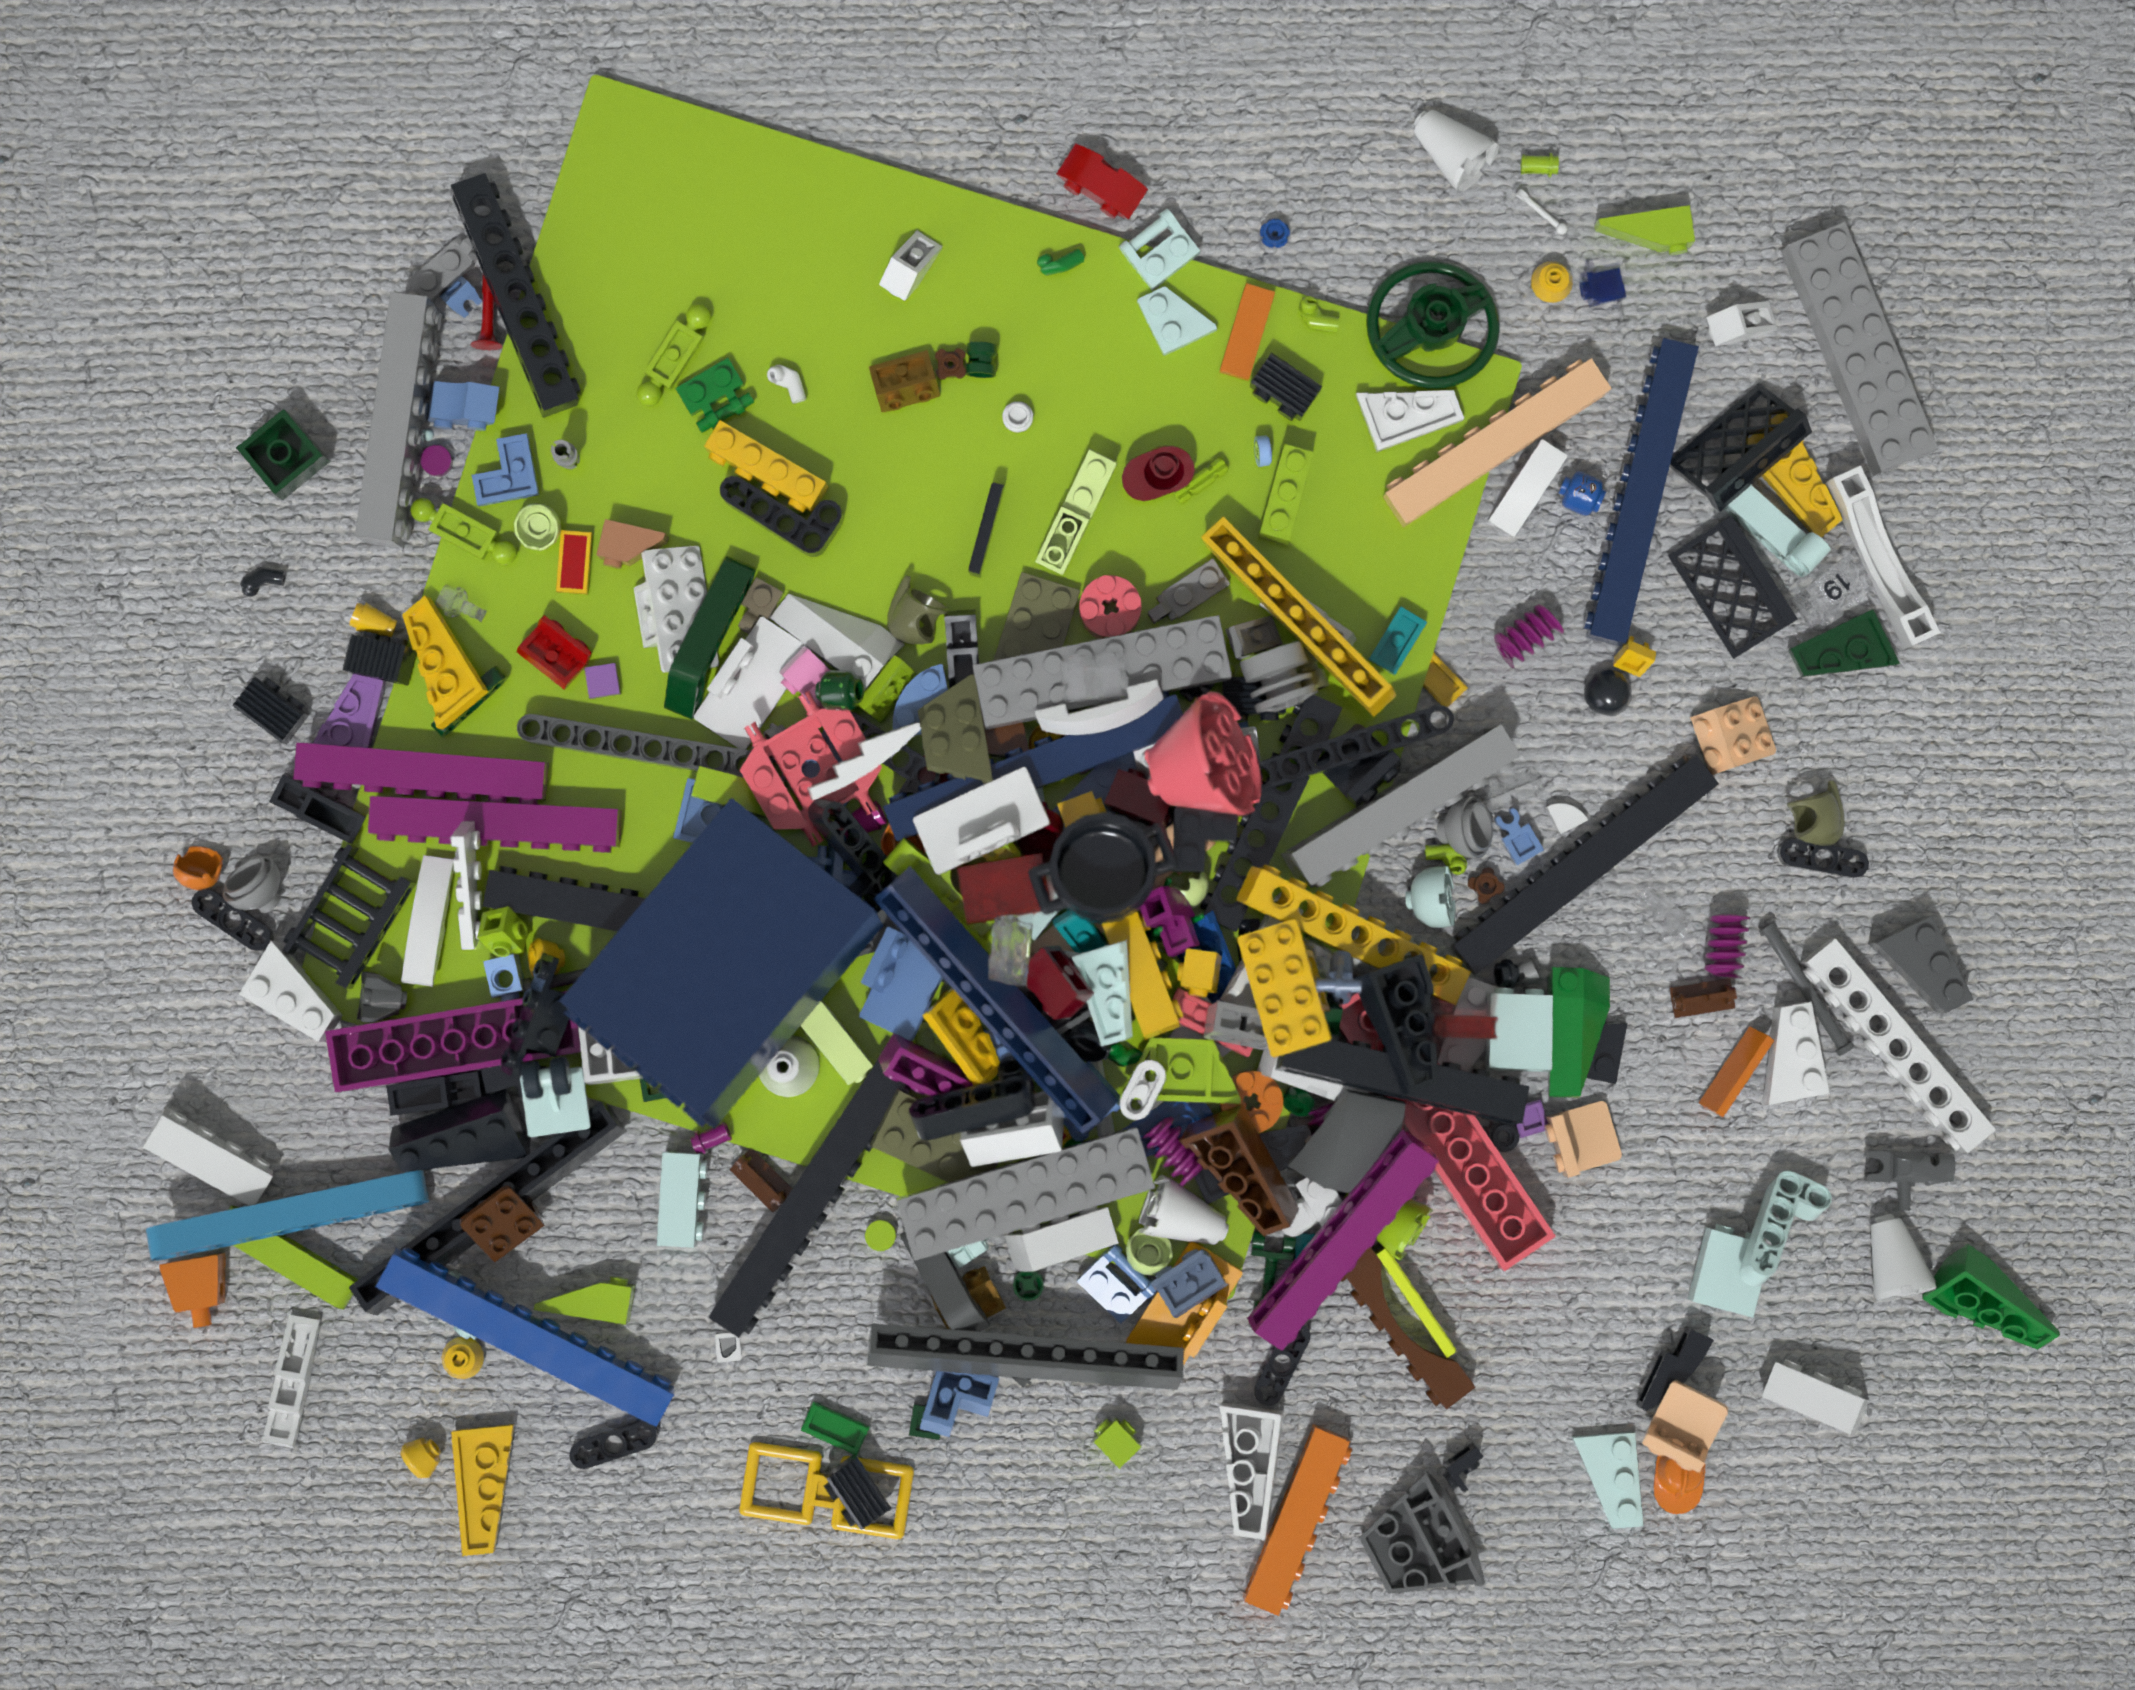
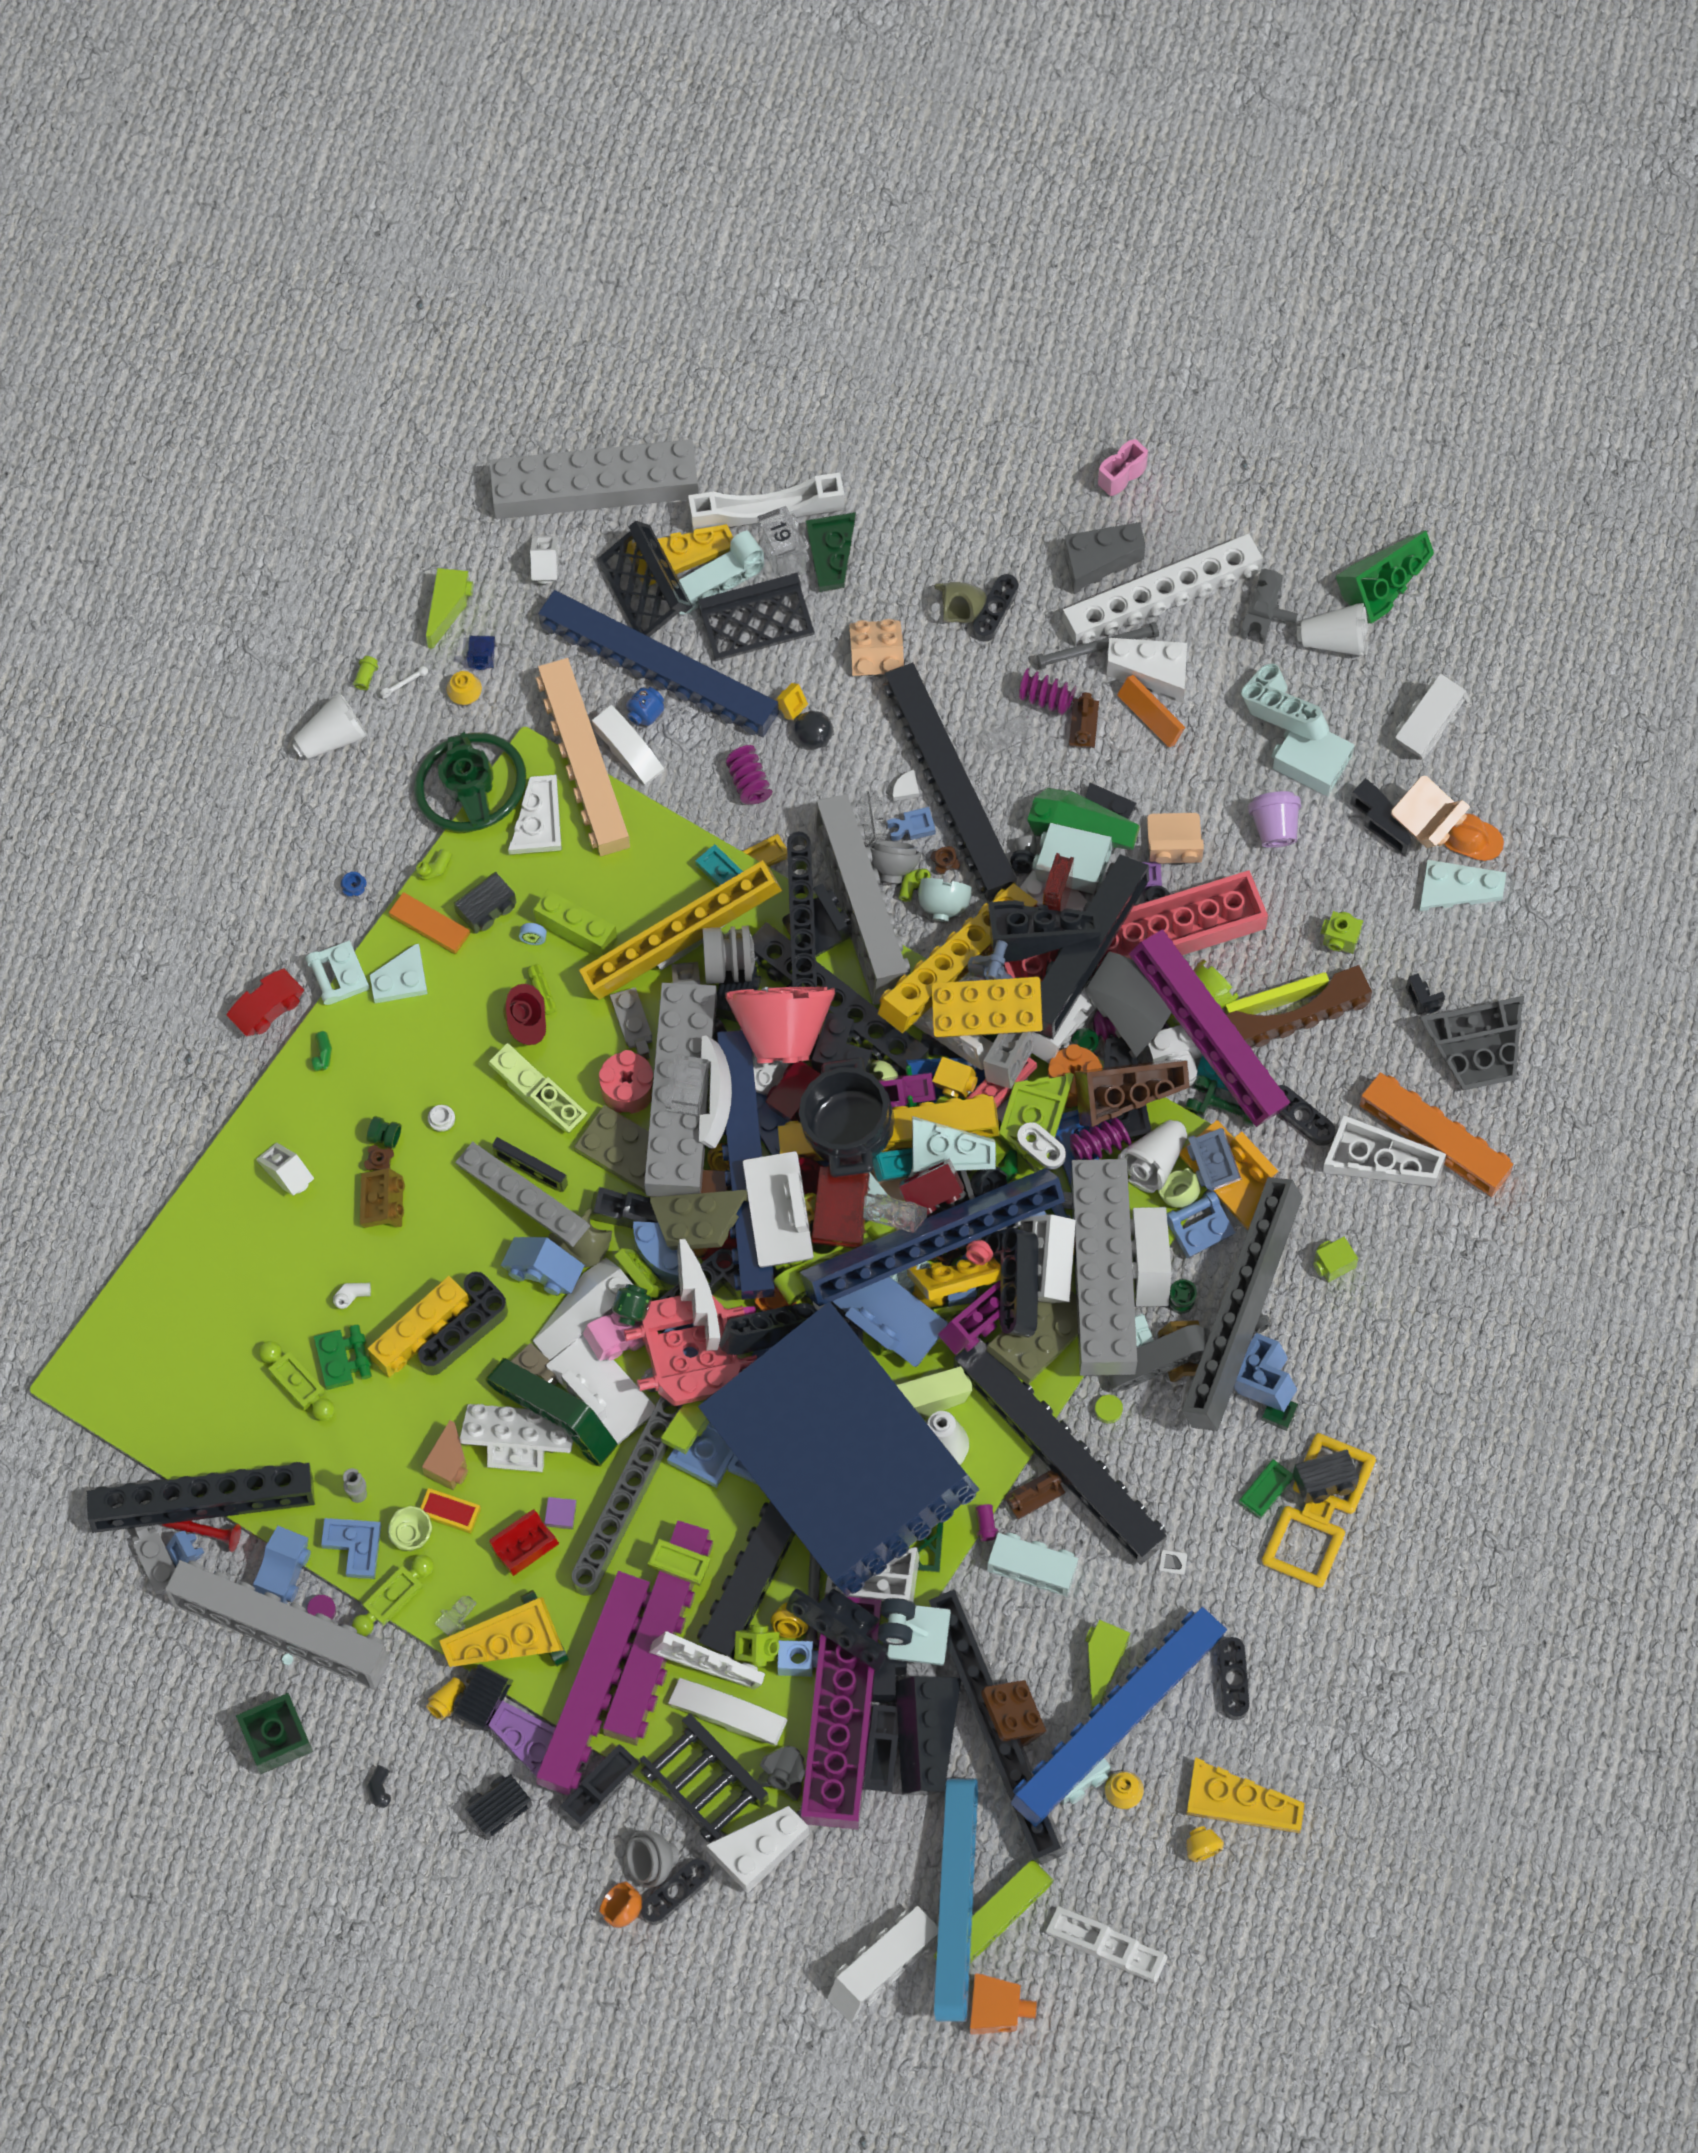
camera: 75 degrees left, 20 degrees down
(568, 824) = (679, 1562): none -> lime tile
(868, 578) = (542, 1262): none -> medium blue brick
(943, 533) = (522, 1194): none -> light grey plate
(996, 1055) = (979, 1252): none -> coral plate
(1520, 1366) = (1341, 932): none -> lime brick
(1635, 1249) = (1276, 818): none -> lavender piece
(2050, 965) = (1122, 467): none -> bright pink brick

